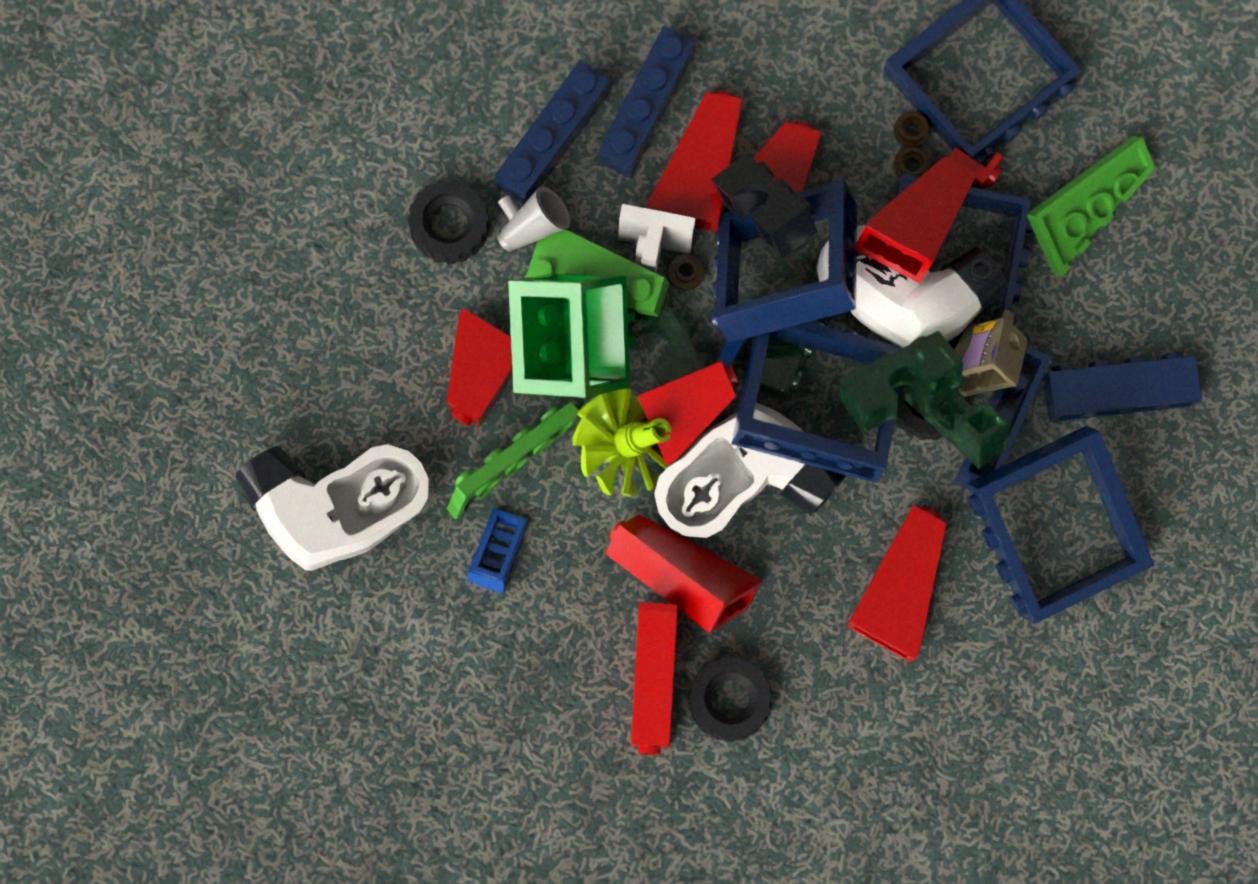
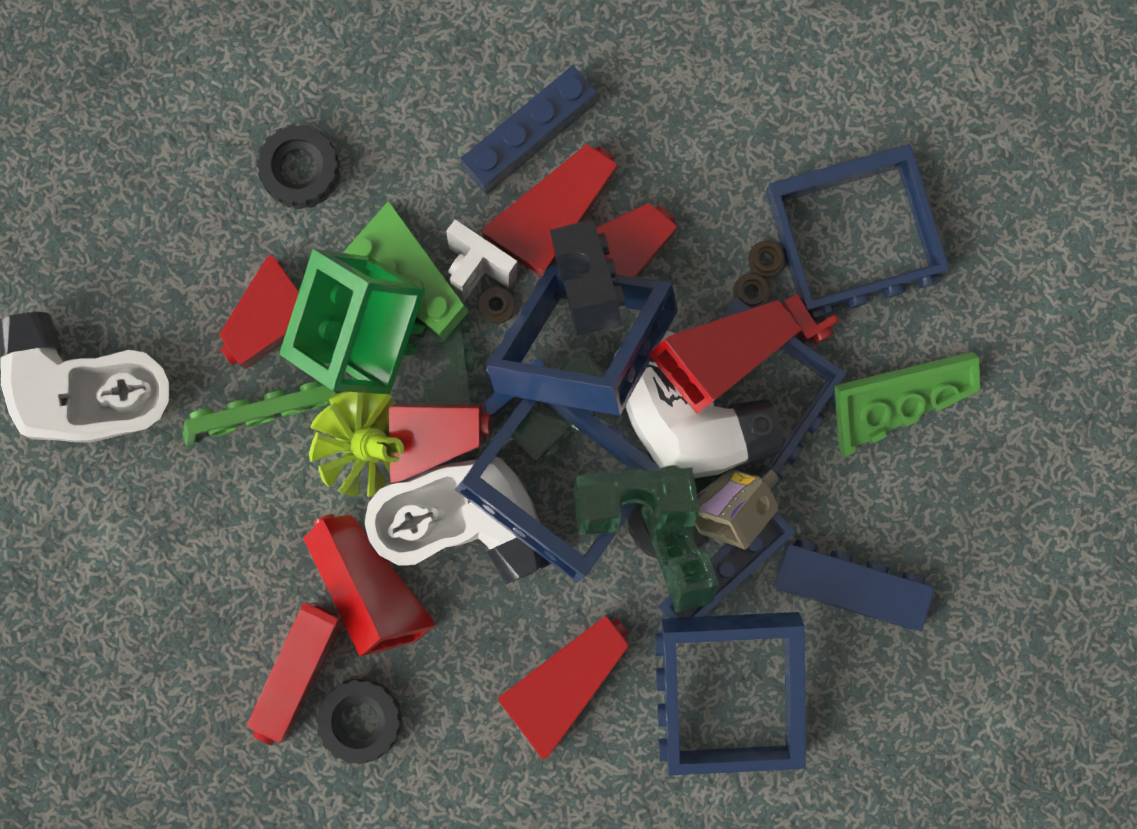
camera: 25 degrees right, 5 degrees up
(487, 578) = (209, 511): blue slope -> none
(536, 219) = (379, 198): light grey piece -> none
(553, 132) = (429, 123): dark blue brick -> none

